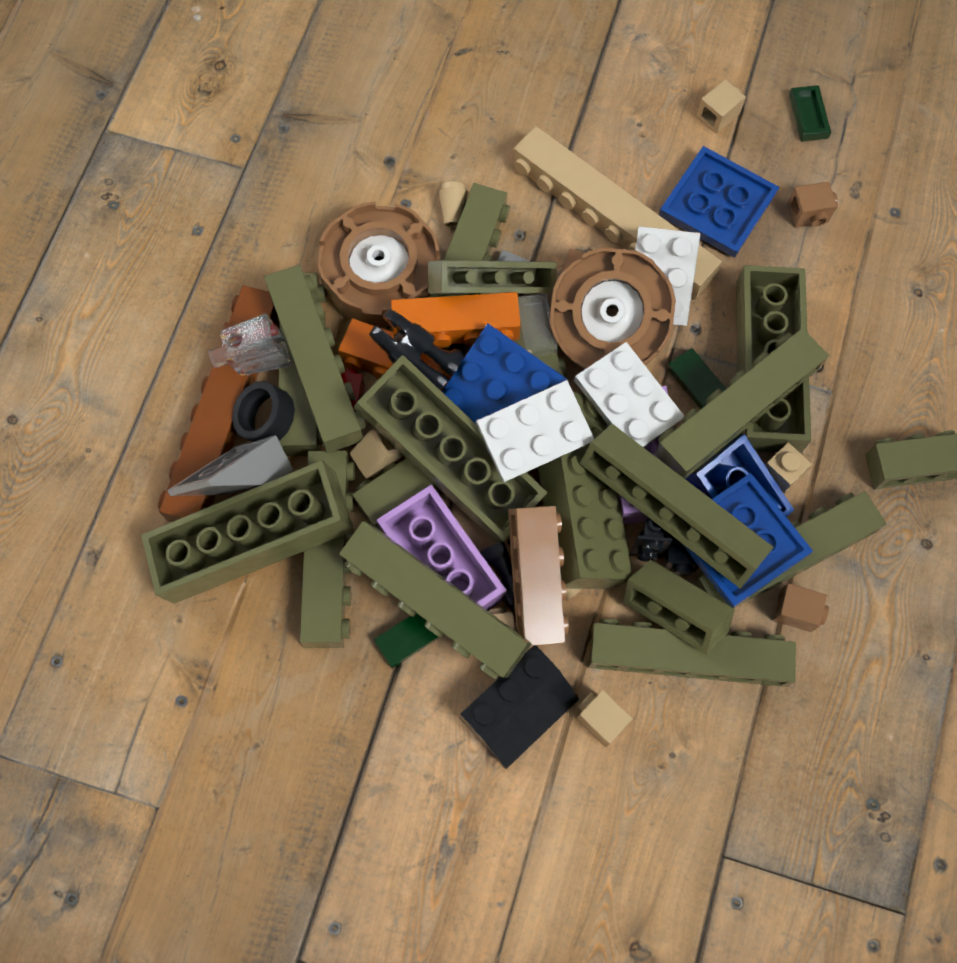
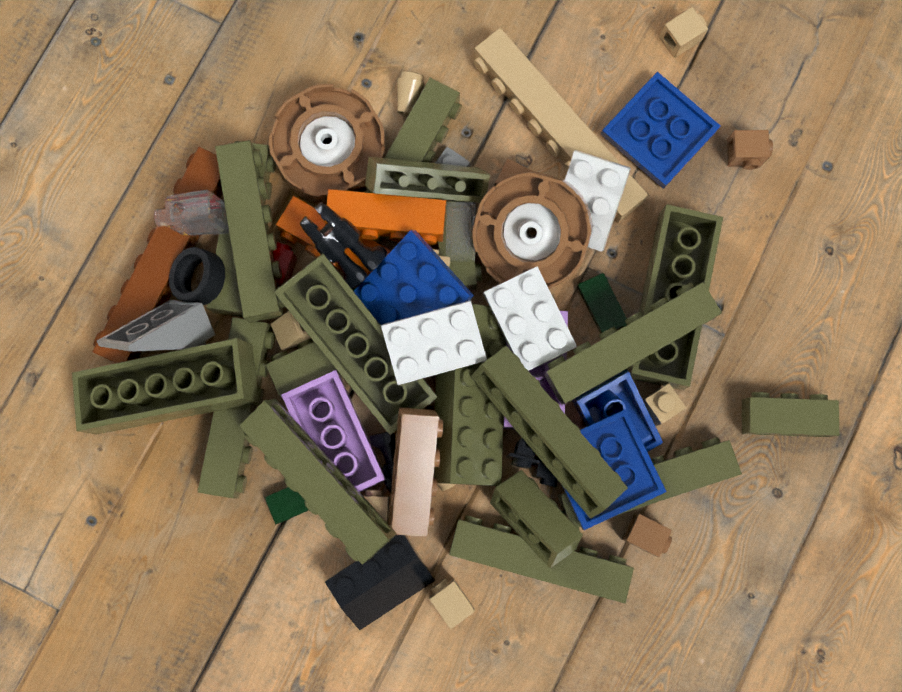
camera: 10 degrees right, 10 degrees up
(810, 113) = (769, 51): dark green tile -> none

